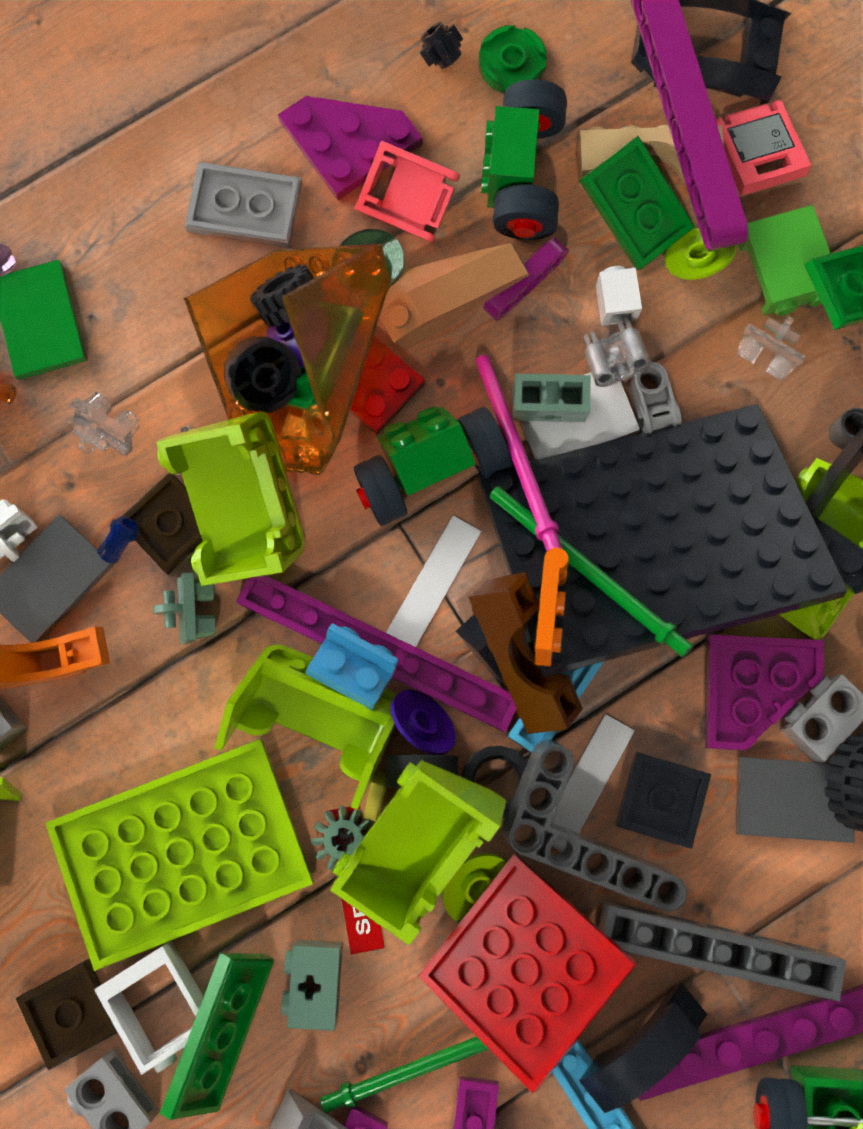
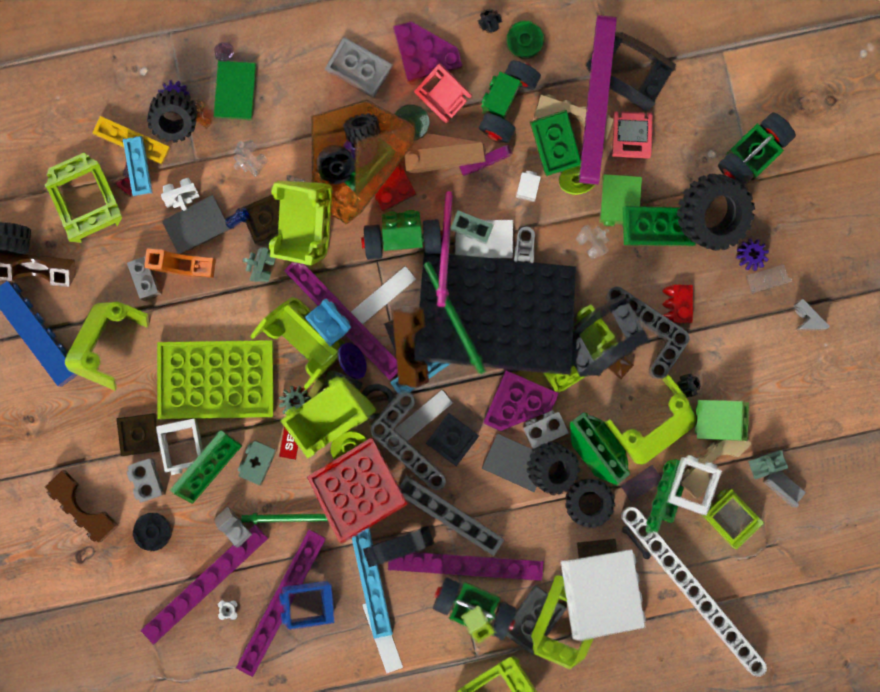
camera: 15 degrees right, 5 degrees up
(551, 604) = (429, 327): orange plate -> none
(616, 355) = (514, 217): clear piece -> none

